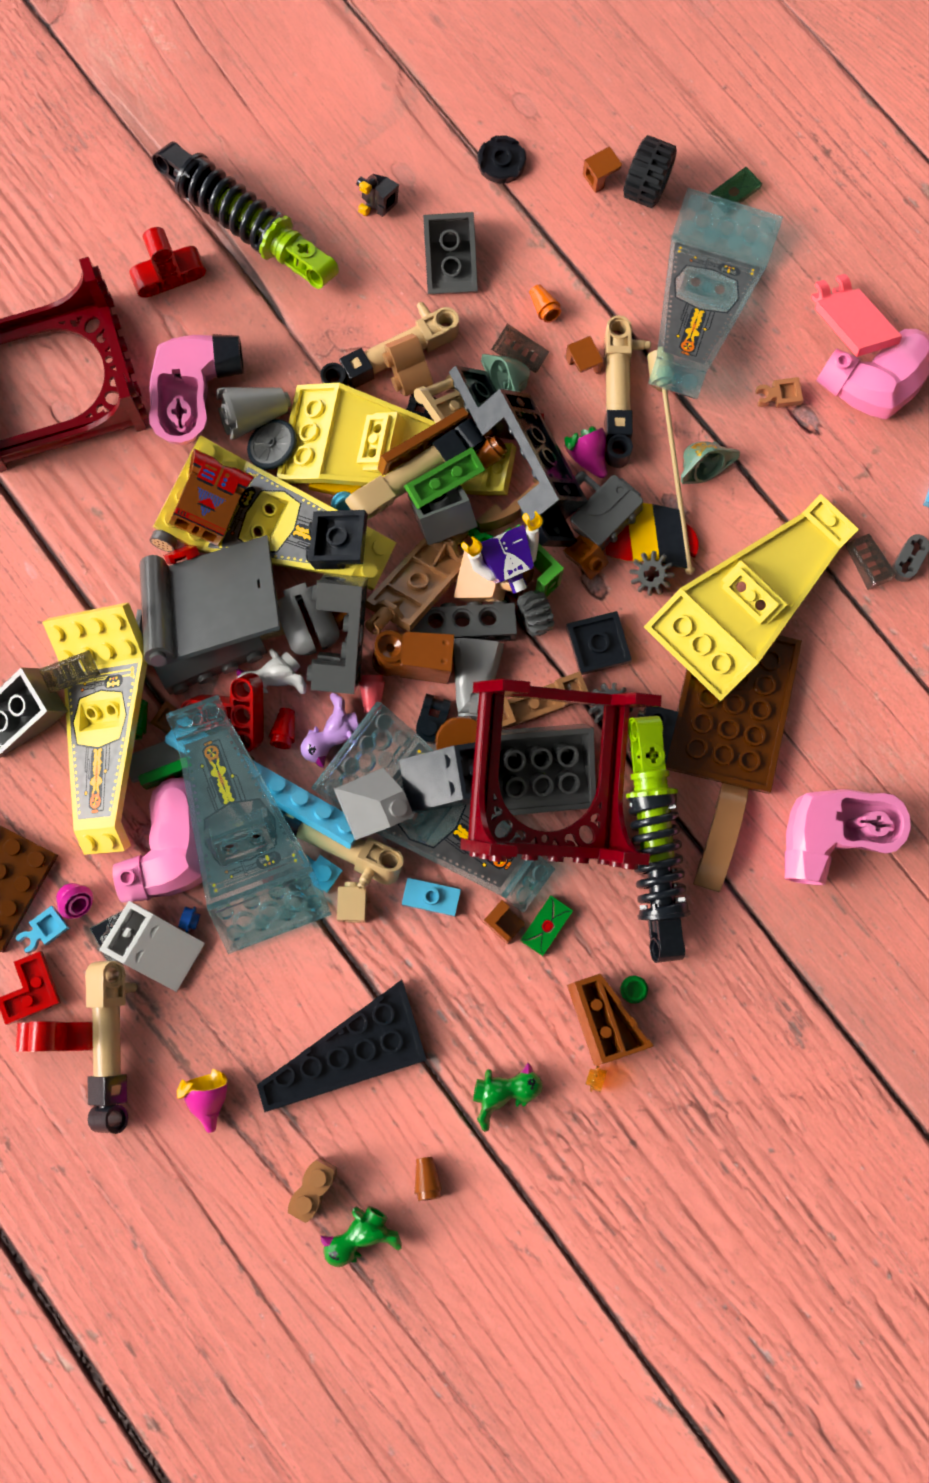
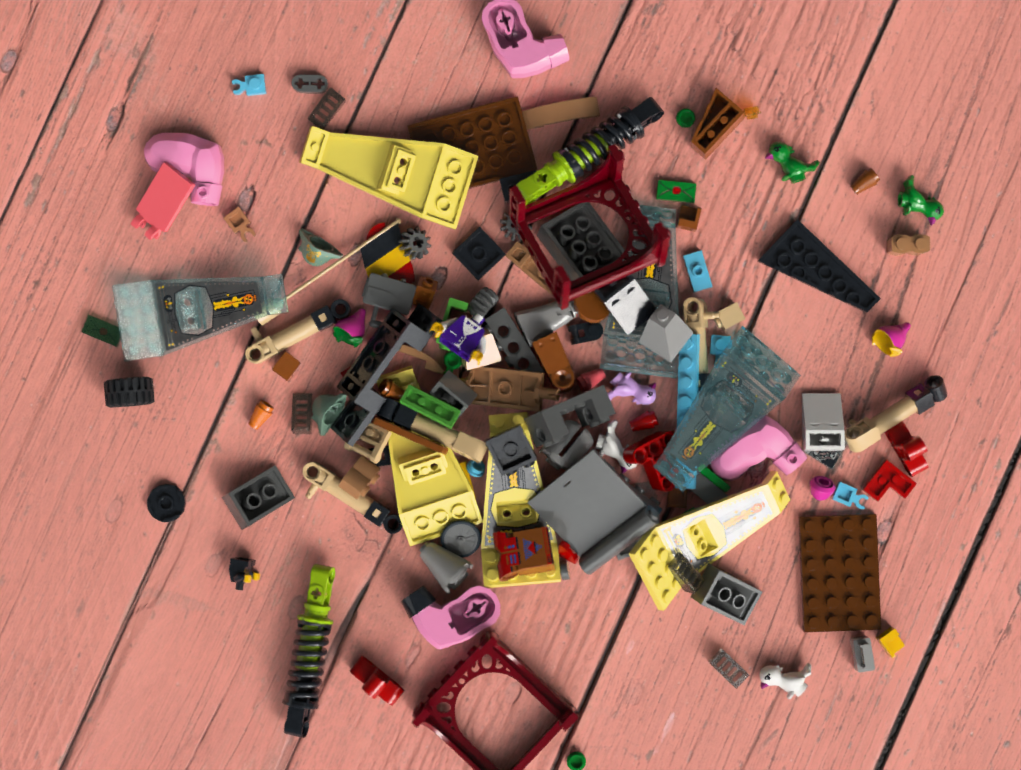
camera: 120 degrees left, 10 degrees up
(189, 919) = (793, 411): blue plate -> none
(600, 166) = (138, 428): dark orange panel -> none

